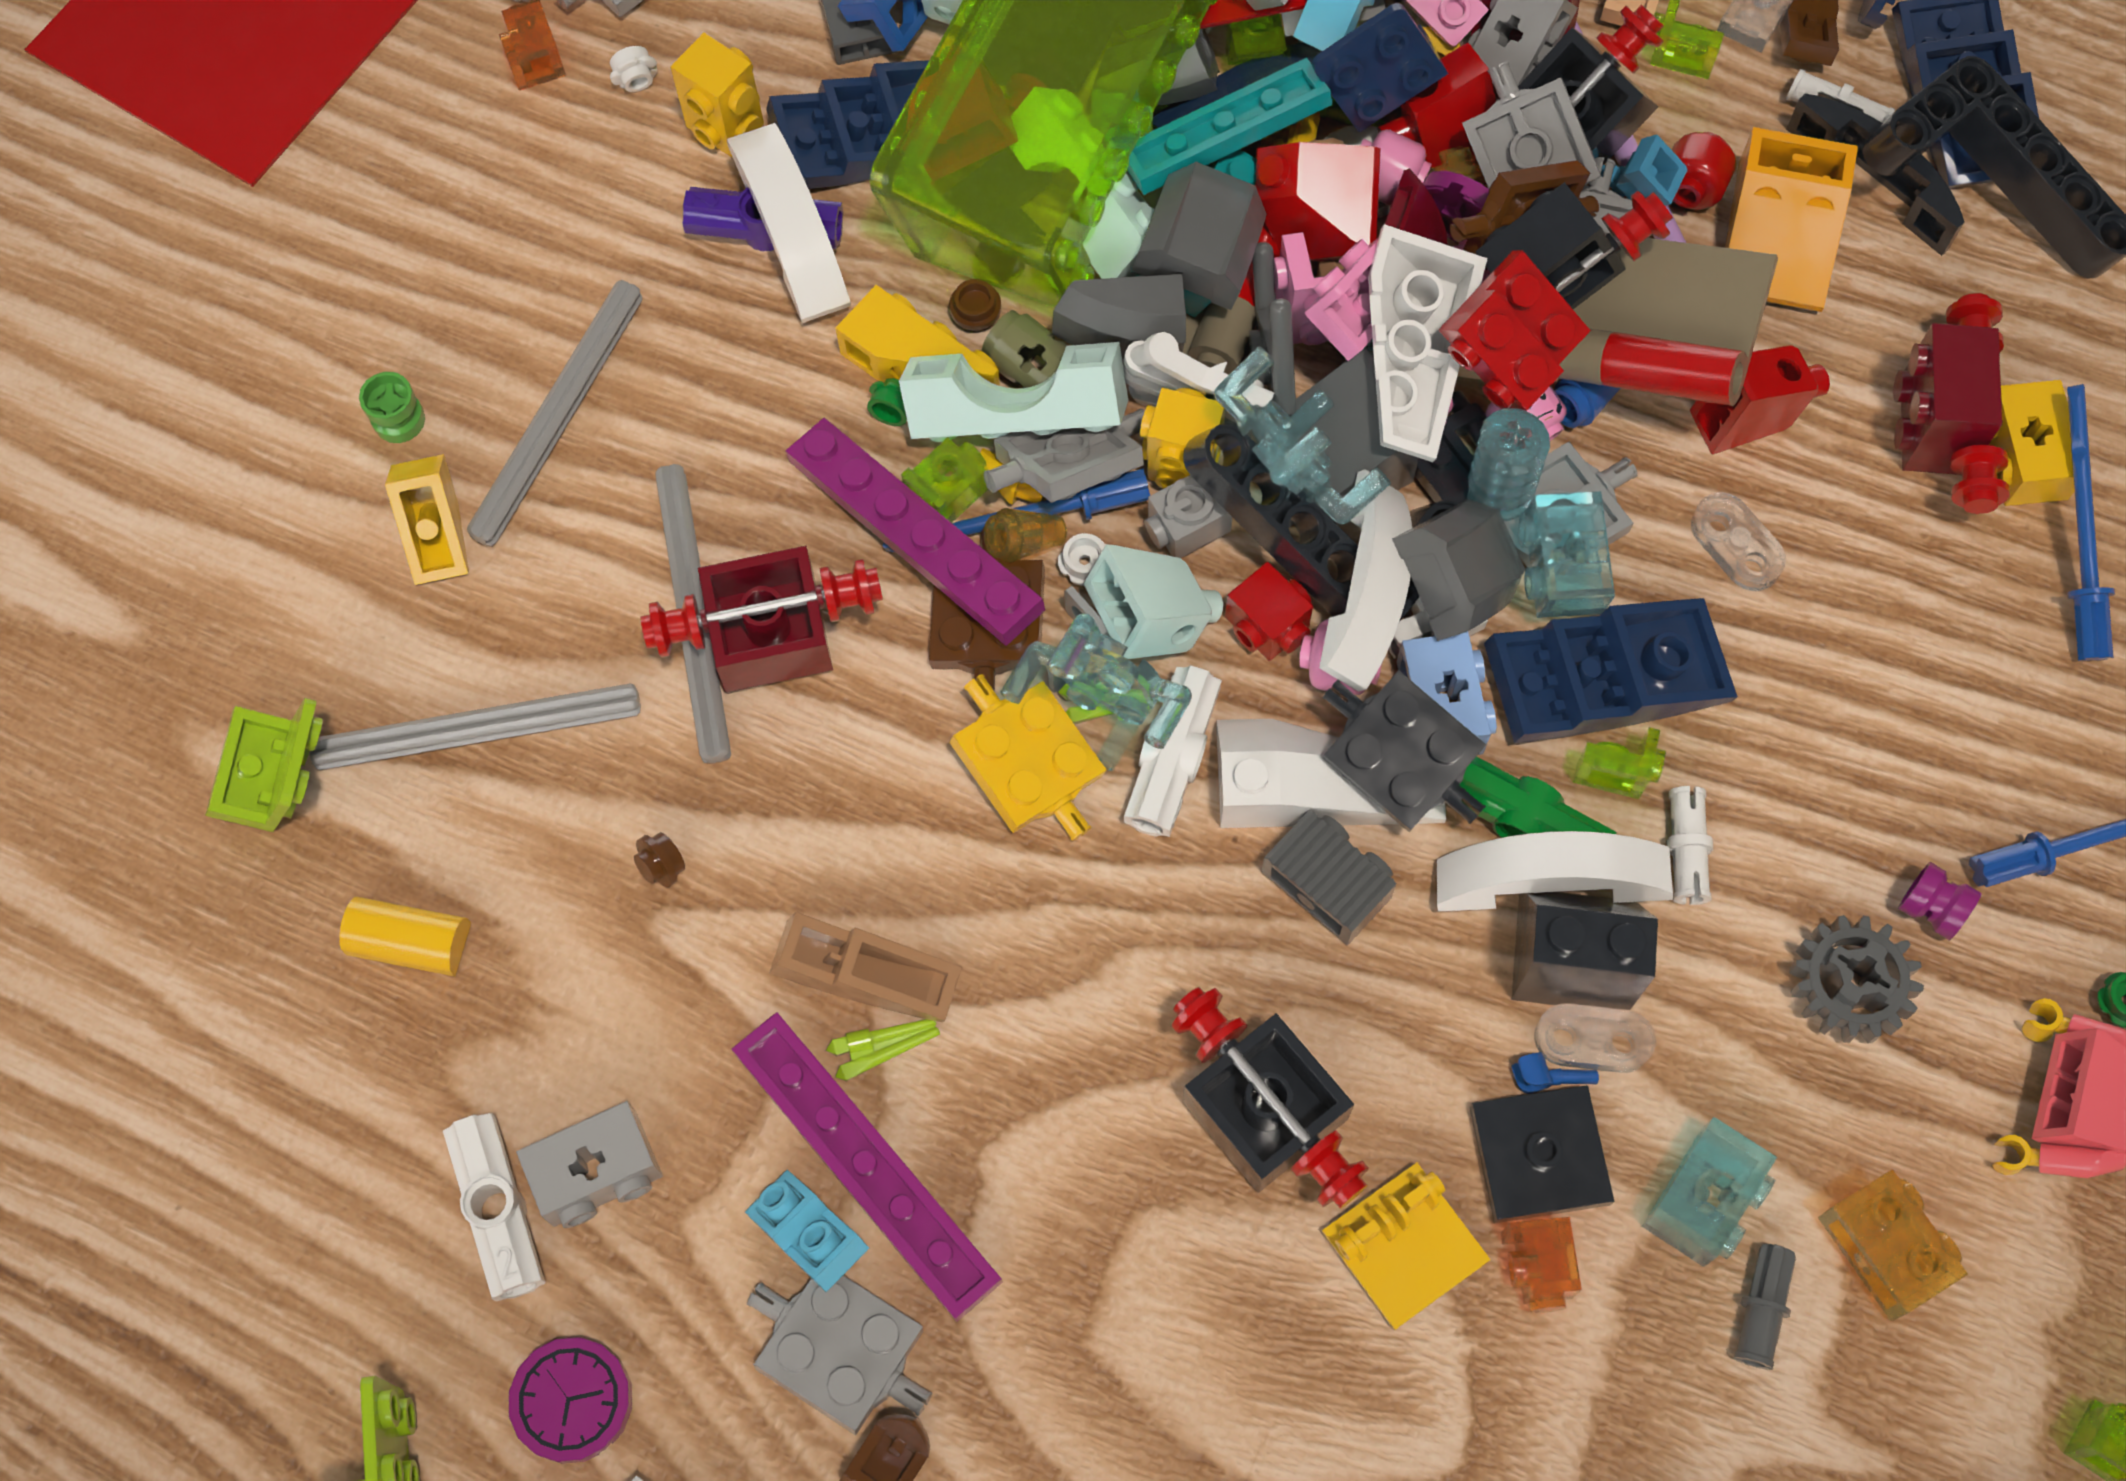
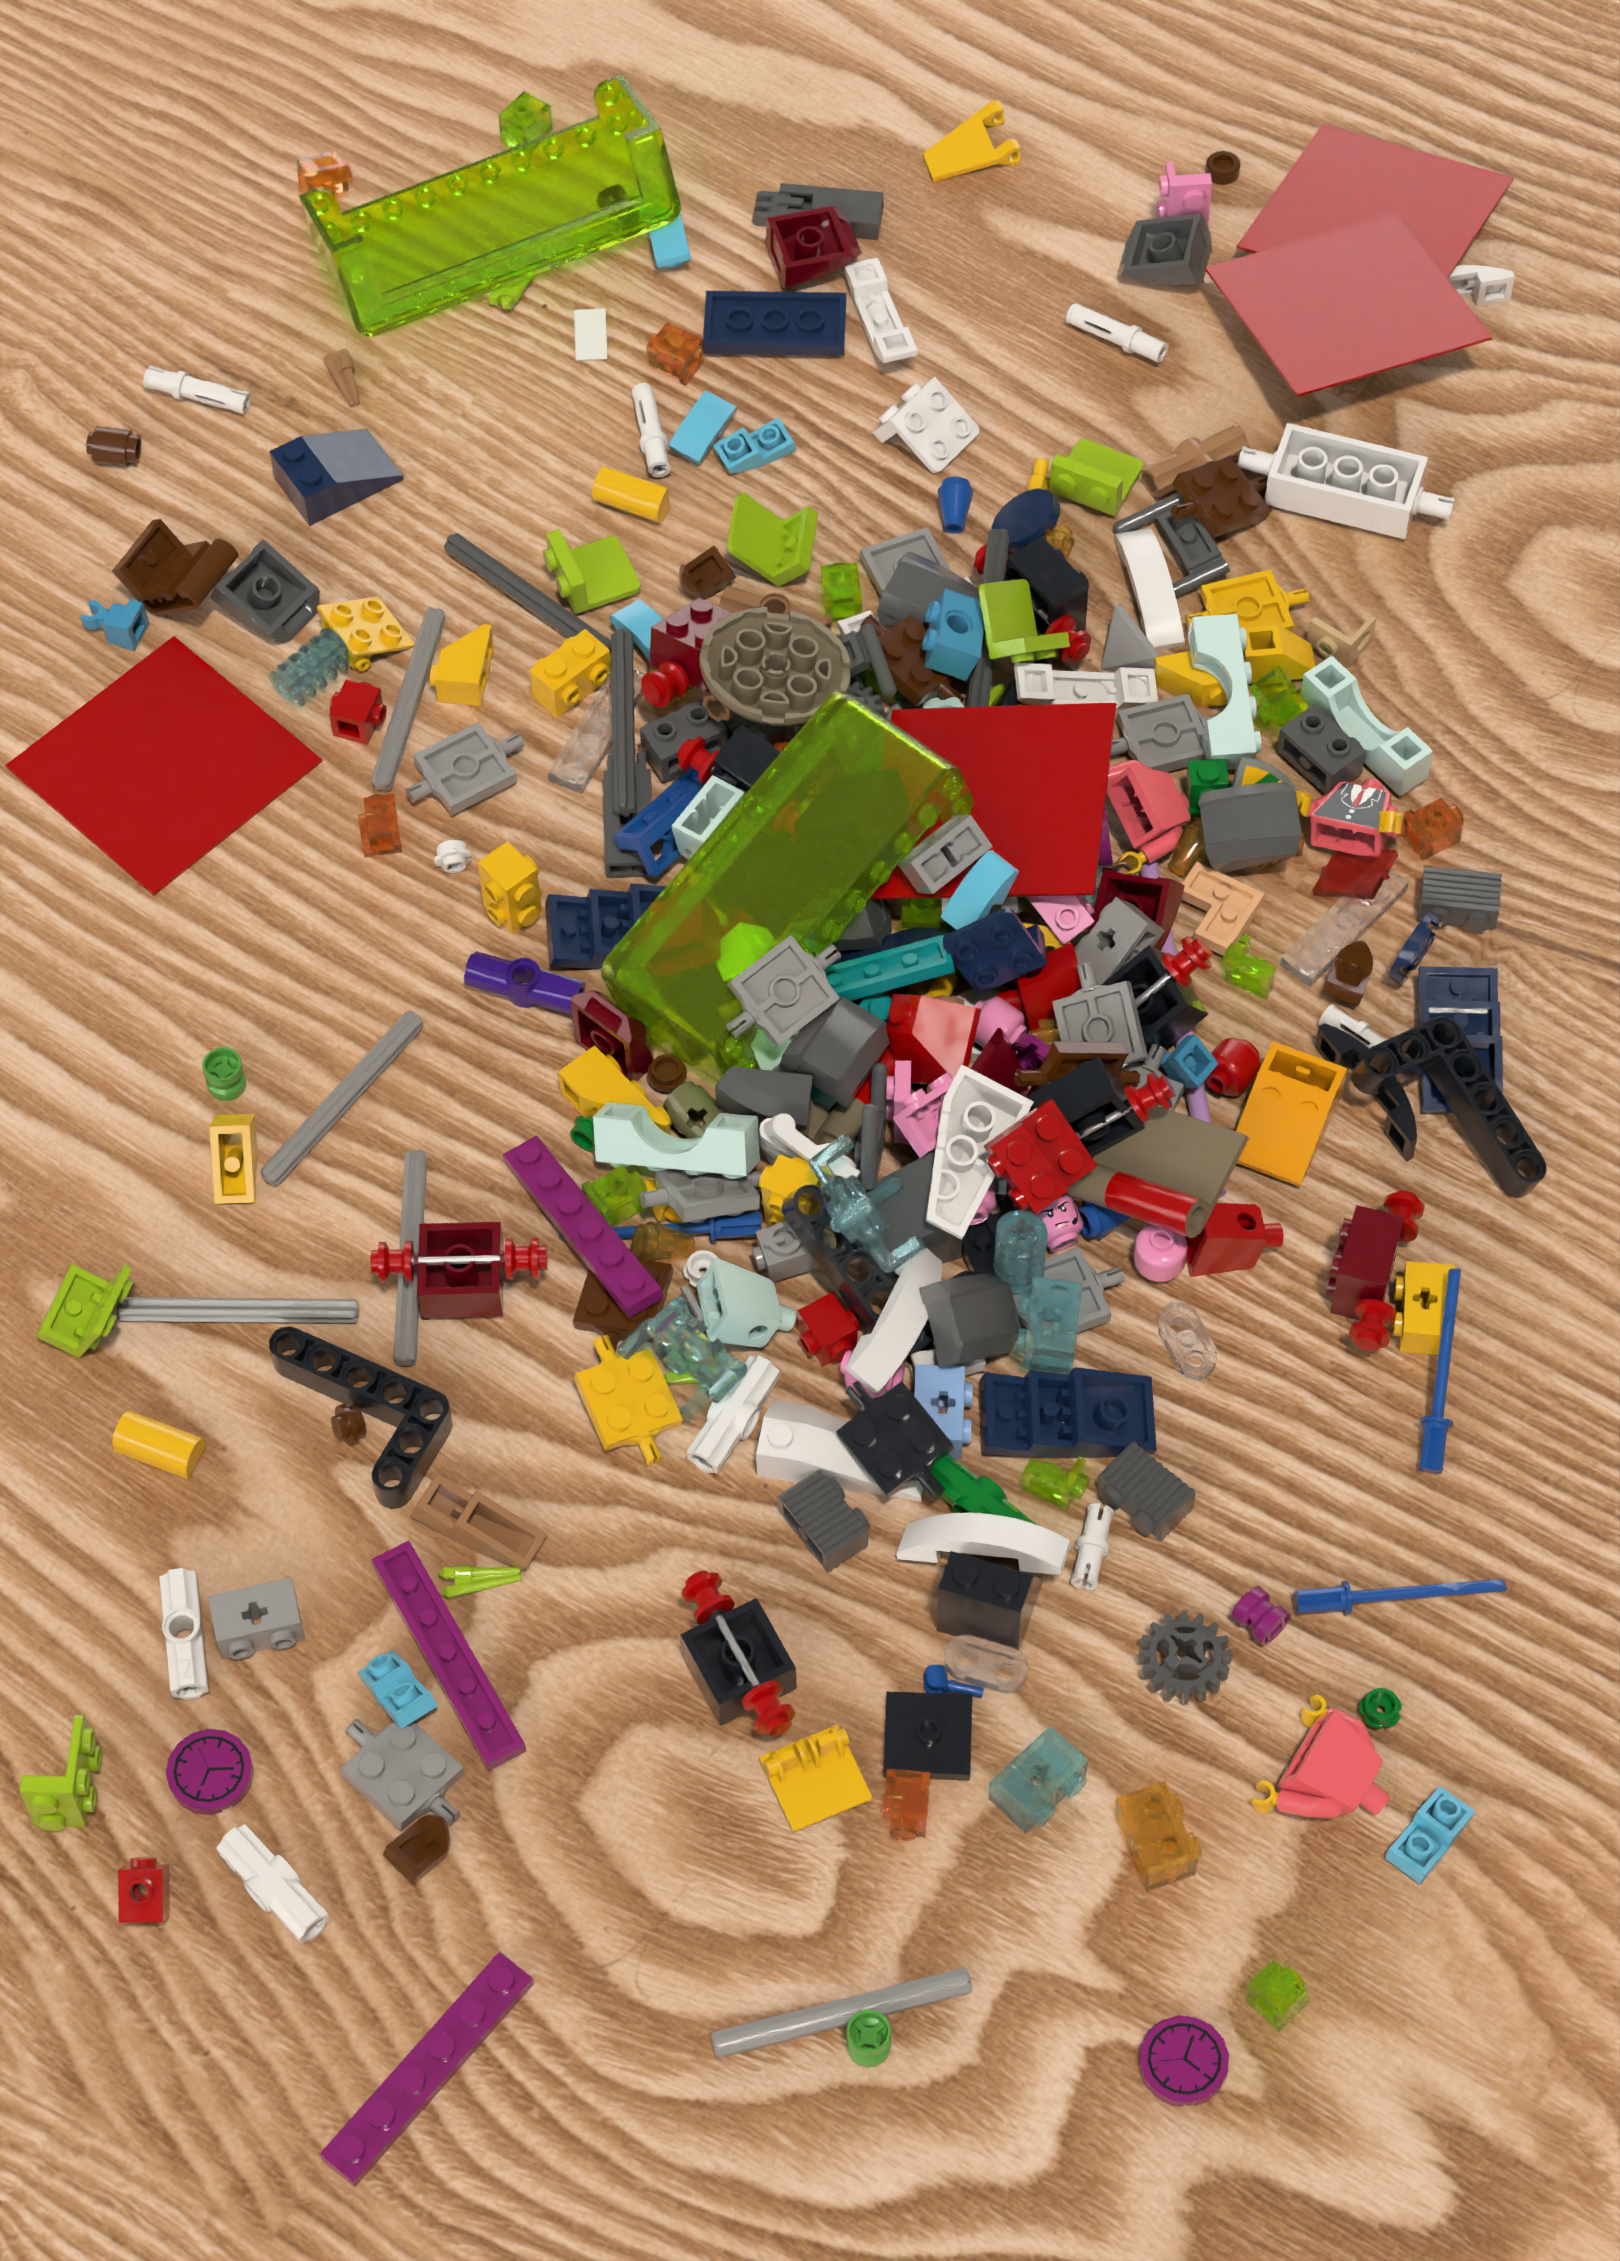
camera: 10 degrees right, 10 degrees down
(685, 820) = (372, 1400): none -> black beam
(790, 221) = (542, 989): white slope -> none
(896, 260) = (613, 1032): none -> dark red slope
(1122, 166) = (783, 991): none -> light grey plate
(1675, 431) = (1160, 1253): none -> bright pink head
(1742, 757) = (1145, 1492): none -> dark grey brick
(1765, 1306) = (1058, 1864): dark grey axle -> none

